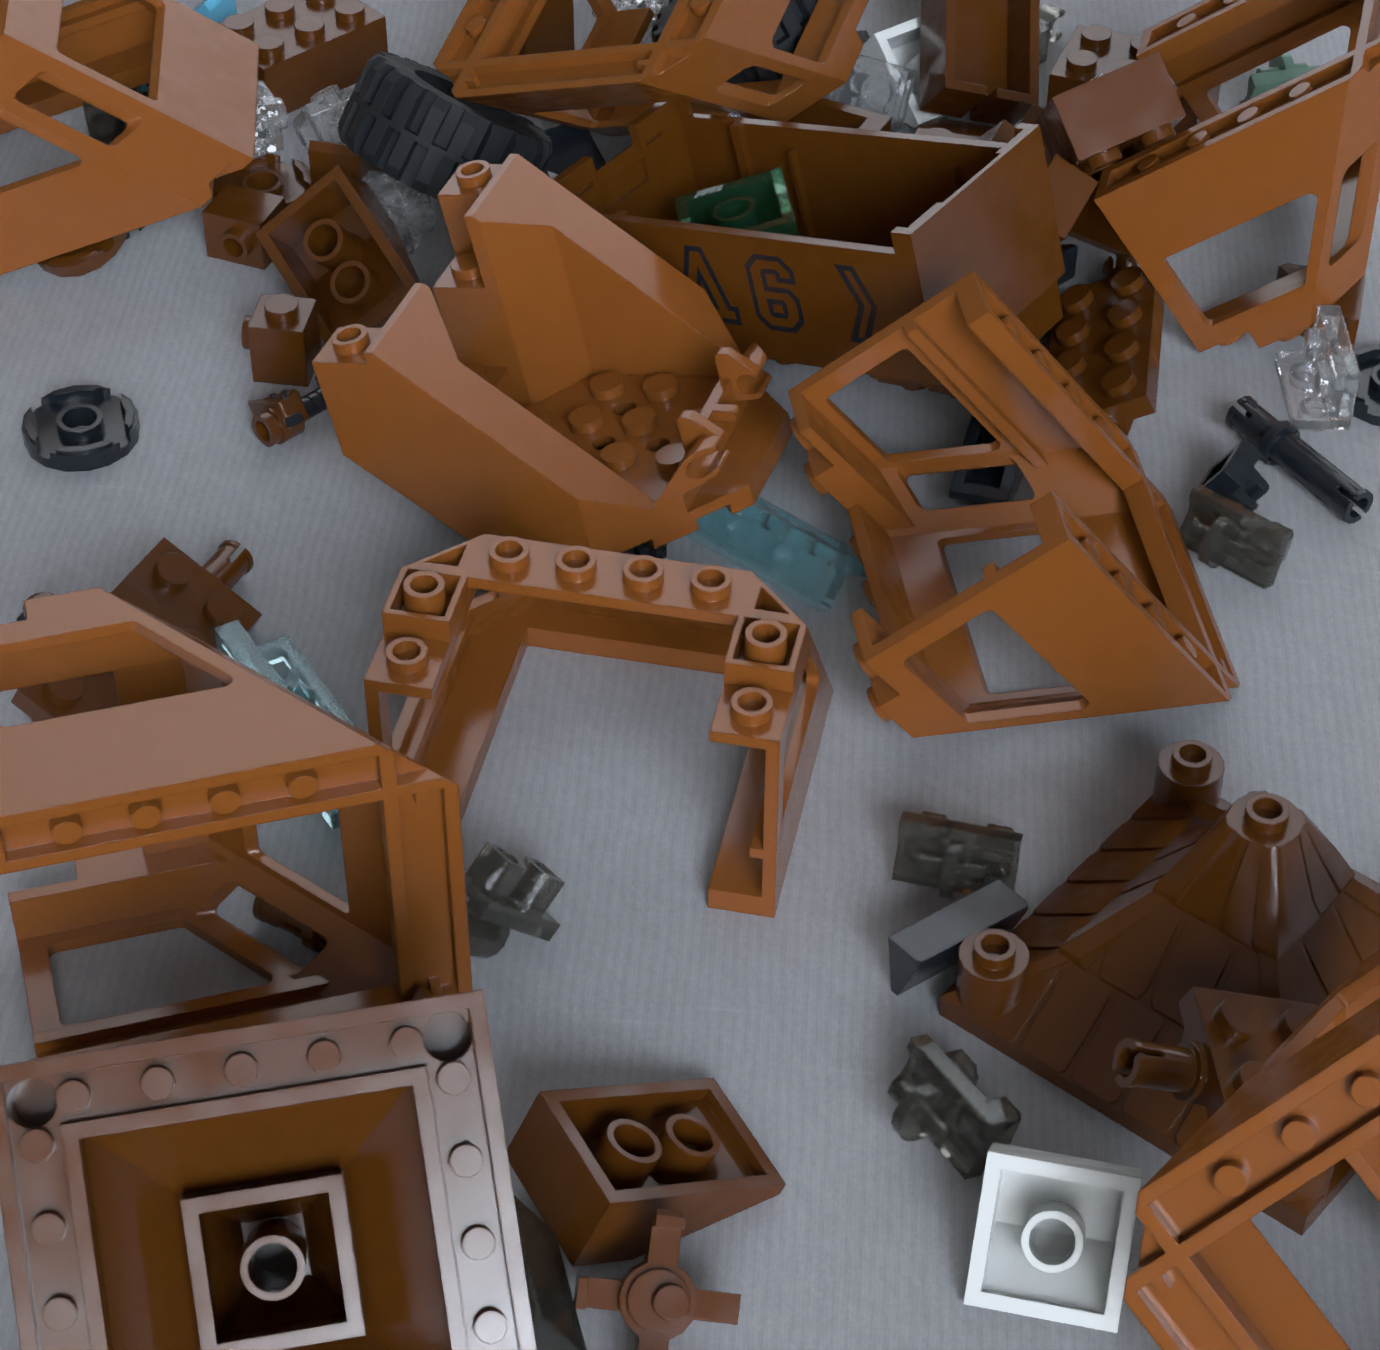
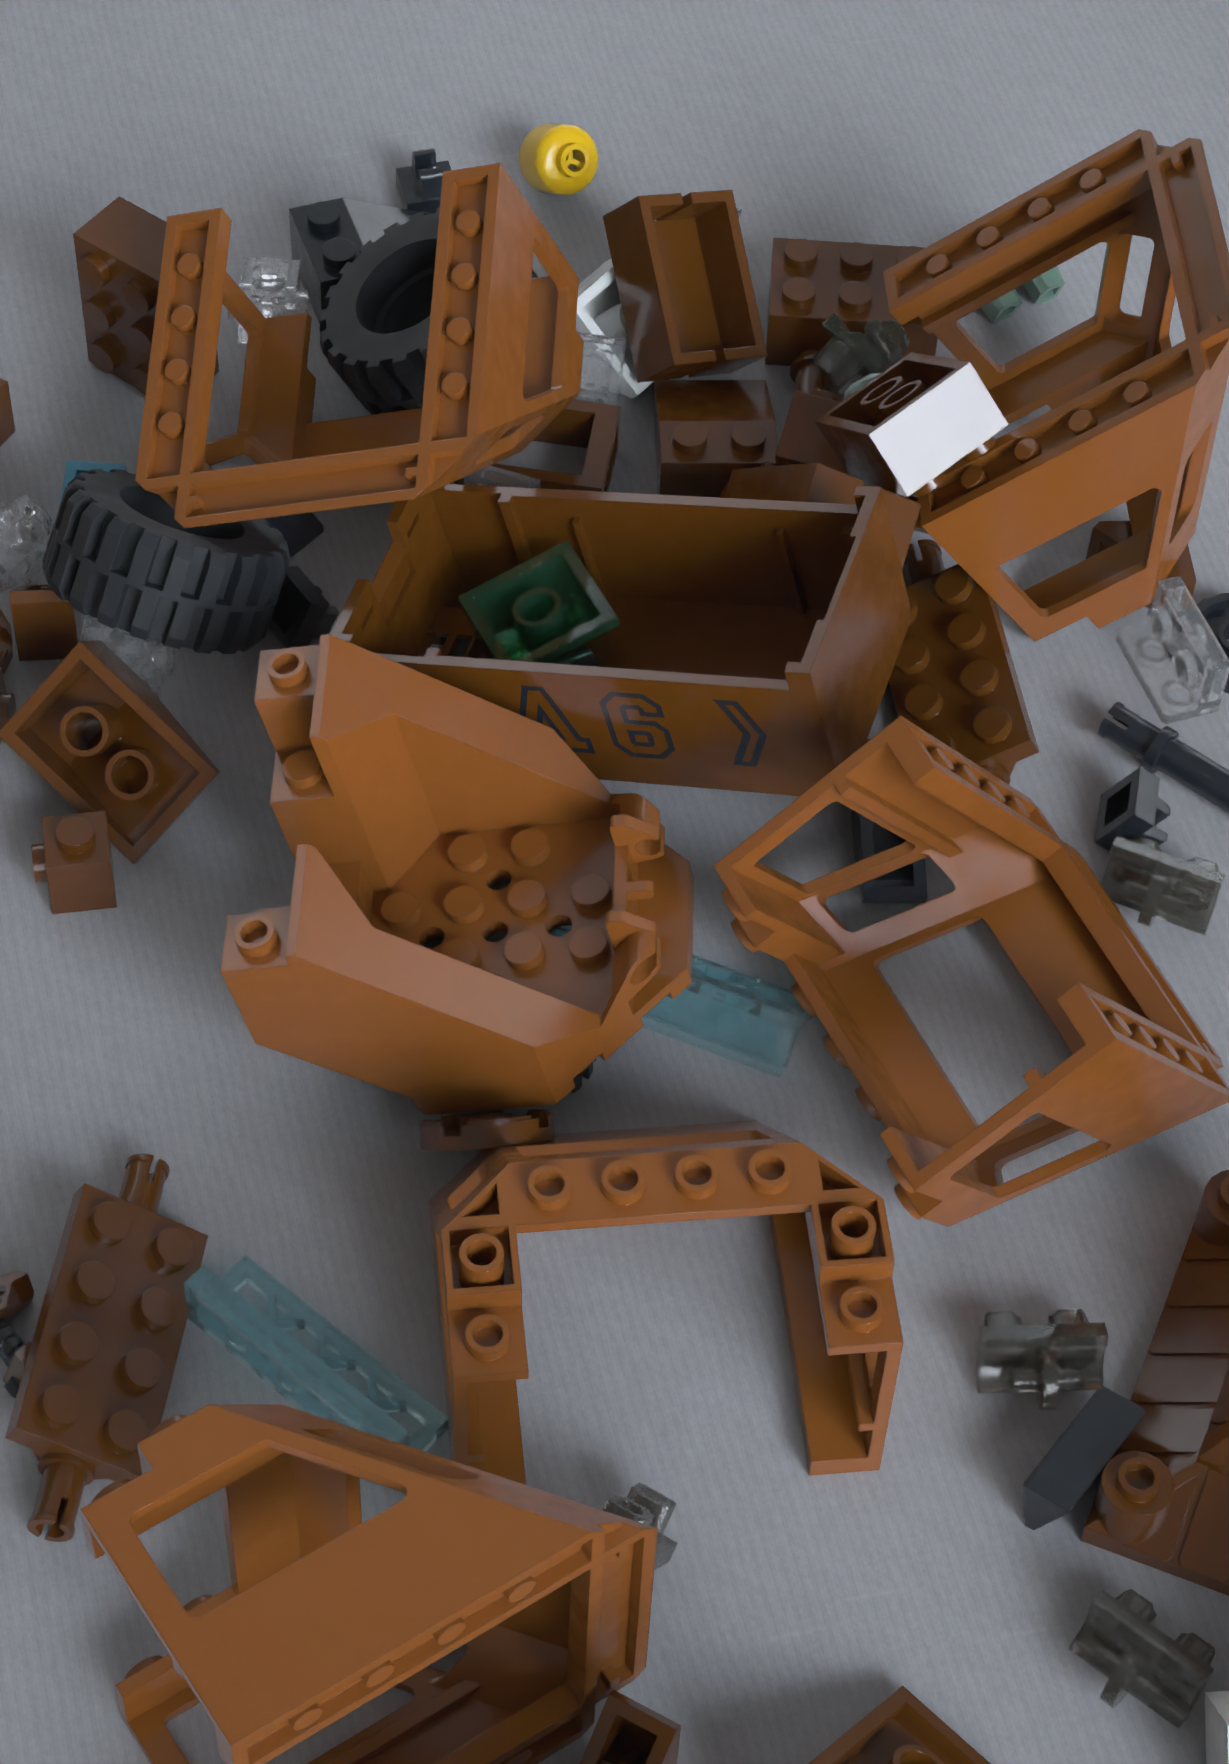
camera: 20 degrees left, 10 degrees up
(284, 414) = (120, 957): reddish brown piece -> none

